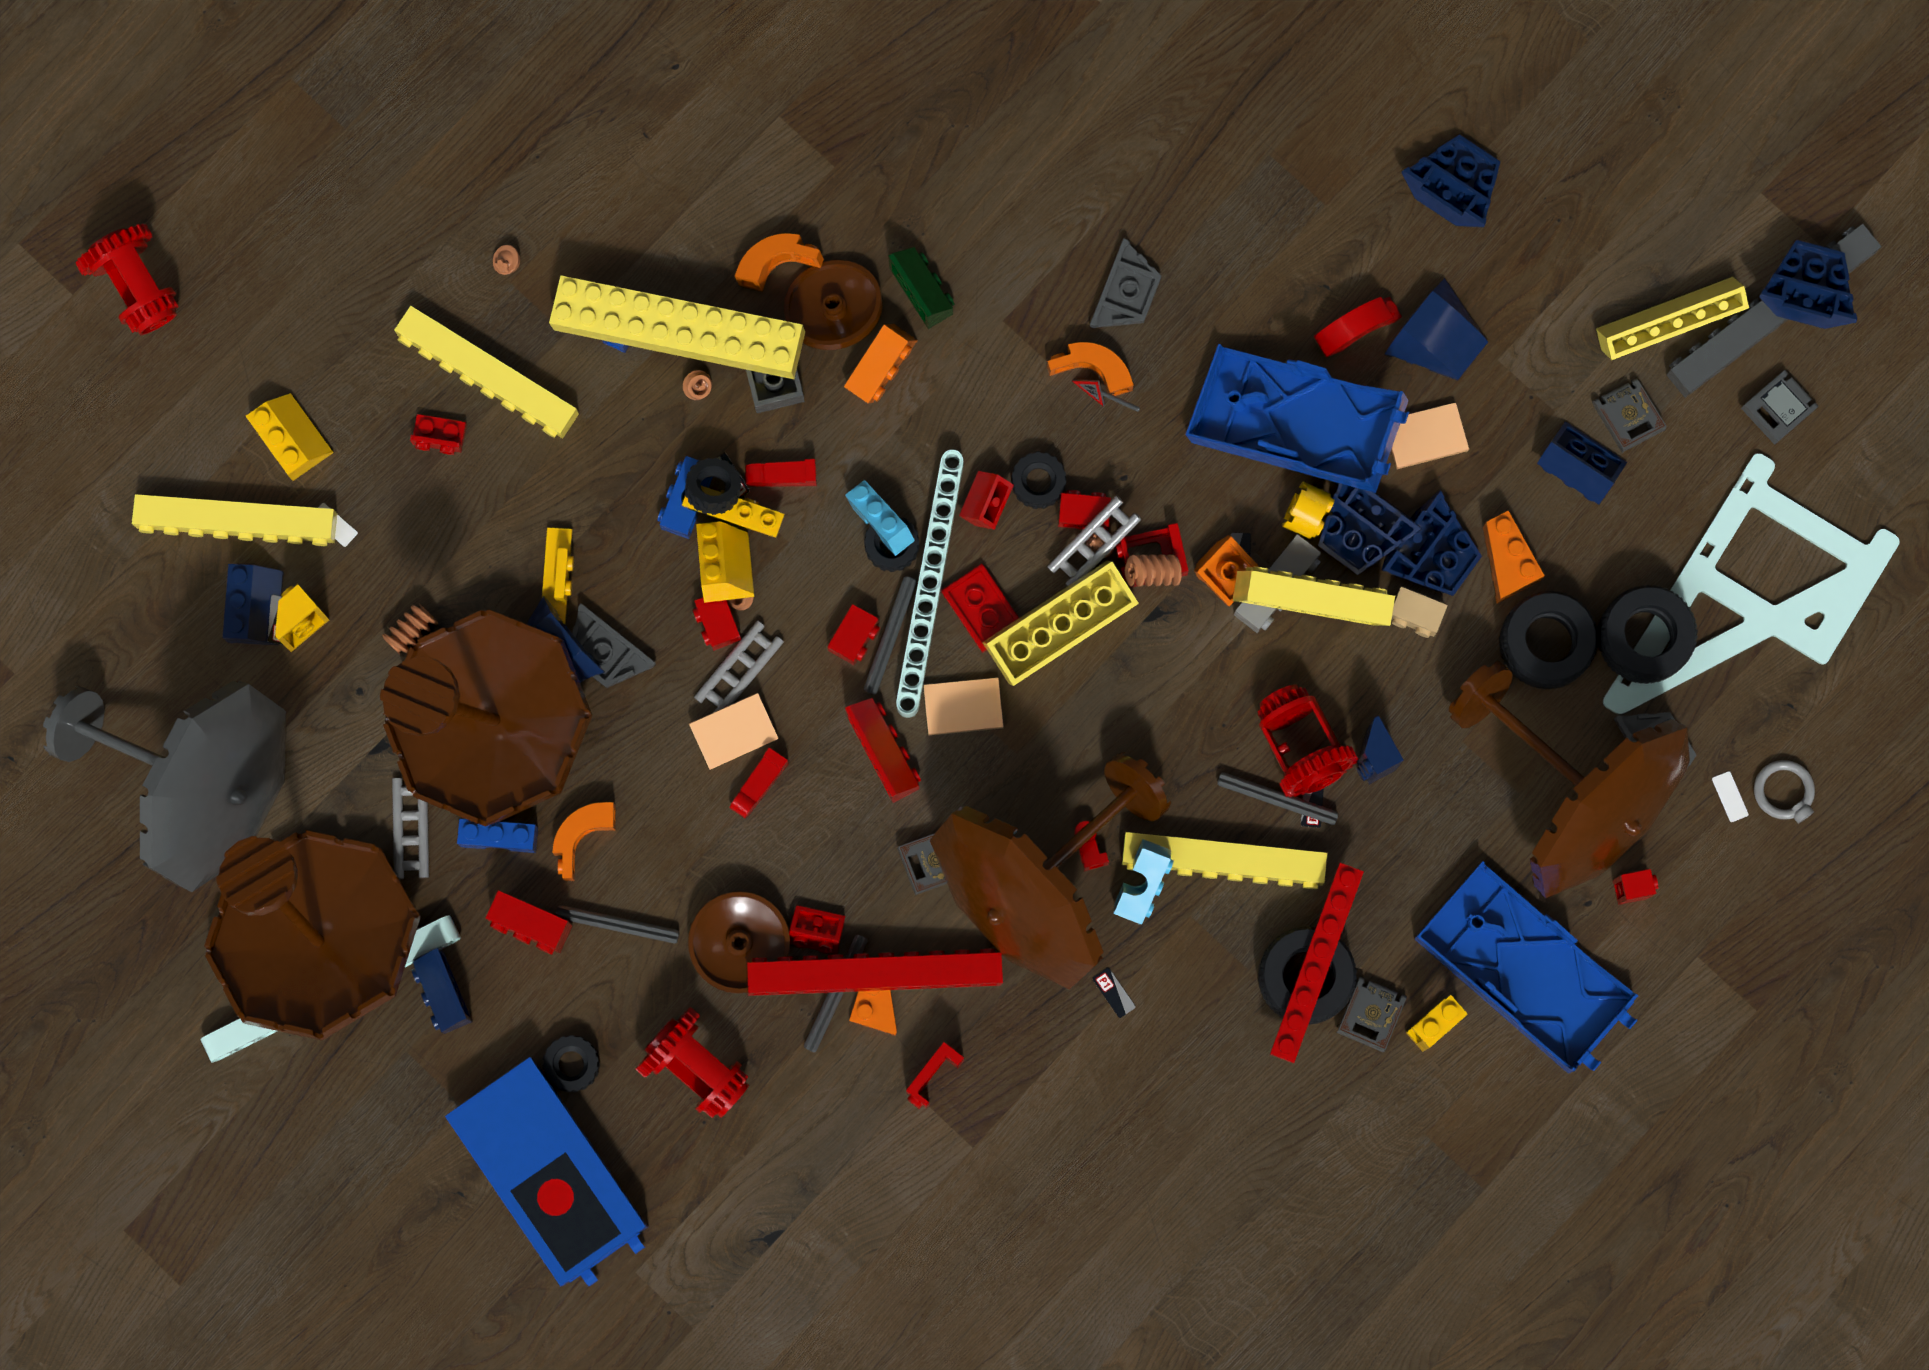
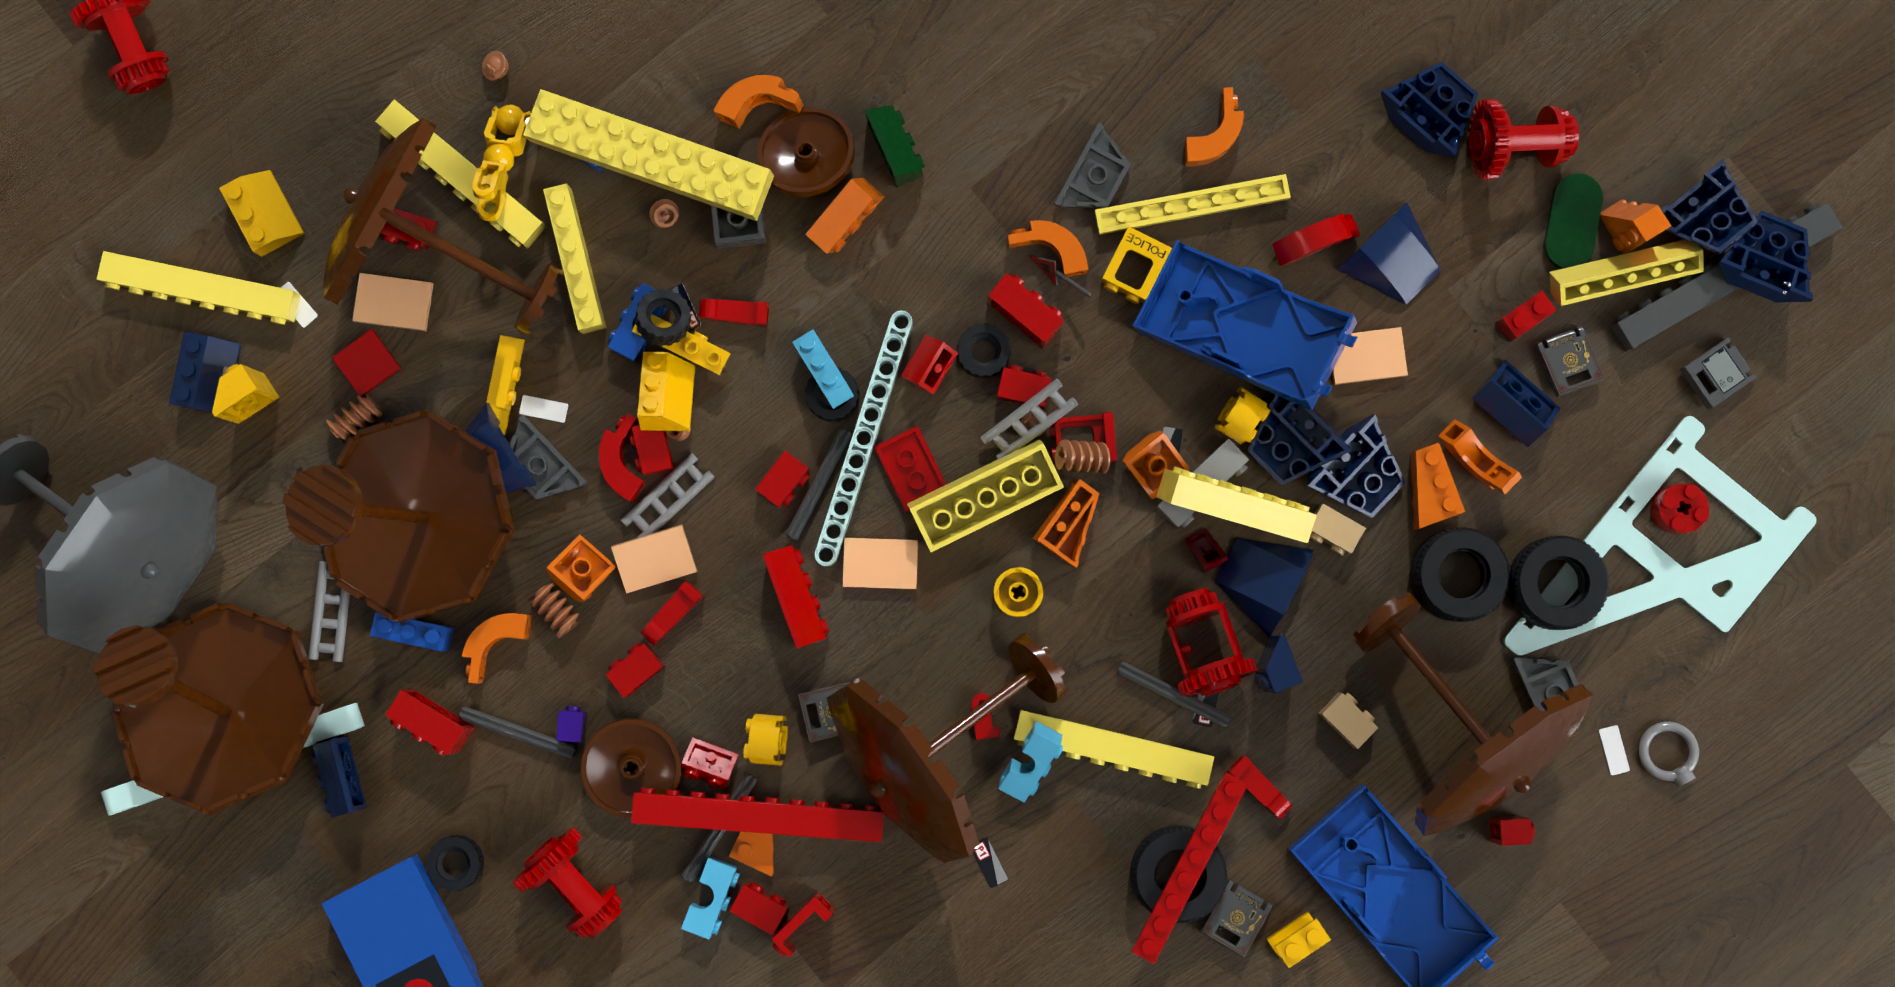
camera: 10 degrees right, 5 degrees up
(414, 422) = (372, 208): none -> reddish brown piece
(414, 573) = (366, 363): none -> red tile
(433, 509) = (392, 302): none -> light nougat tile
(526, 348) = (498, 158): none -> yellow piece
(600, 596) = (543, 408): none -> white sticker
(613, 441) = (574, 259): none -> light yellow brick
(639, 794) = (554, 609): none -> nougat piece
(659, 751) = (580, 569): none -> orange slope
(672, 908) = (571, 724): none -> dark purple brick
(686, 653) = (612, 461): none -> red arch
(728, 844) = (634, 669): none -> red brick
(834, 1086) = (704, 919): none -> medium azure arch
(872, 895) = (766, 739): none -> yellow brick
(887, 1067) = (759, 908): none -> red brick
(1076, 433) = (1025, 310): none -> red brick
(1093, 721) = (1013, 579): none -> yellow brick
(1148, 639) = (1068, 522): none -> orange wedge
(1186, 354) = (1145, 246): none -> yellow window
(1229, 307) = (1192, 204): none -> light yellow plate
(1239, 249) = (1211, 147): none -> orange arch
(1290, 650) = (1205, 550): none -> dark red slope
(1351, 671) = (1263, 579): none -> dark blue wedge
(1380, 881) = (1260, 787): none -> red leg
(1457, 800) = (1348, 719): none -> tan brick
(1521, 203) = (1493, 137): none -> red piece
(1548, 522) = (1477, 459): none -> orange arch
(1578, 375) = (1525, 316): none -> red brick
(1613, 275) = (1573, 221): none -> dark green tile
(1672, 270) = (1633, 223): none -> orange wedge
(1746, 249) = (1711, 212): none -> dark blue wedge
(1761, 532) = (1693, 504): none -> red brick

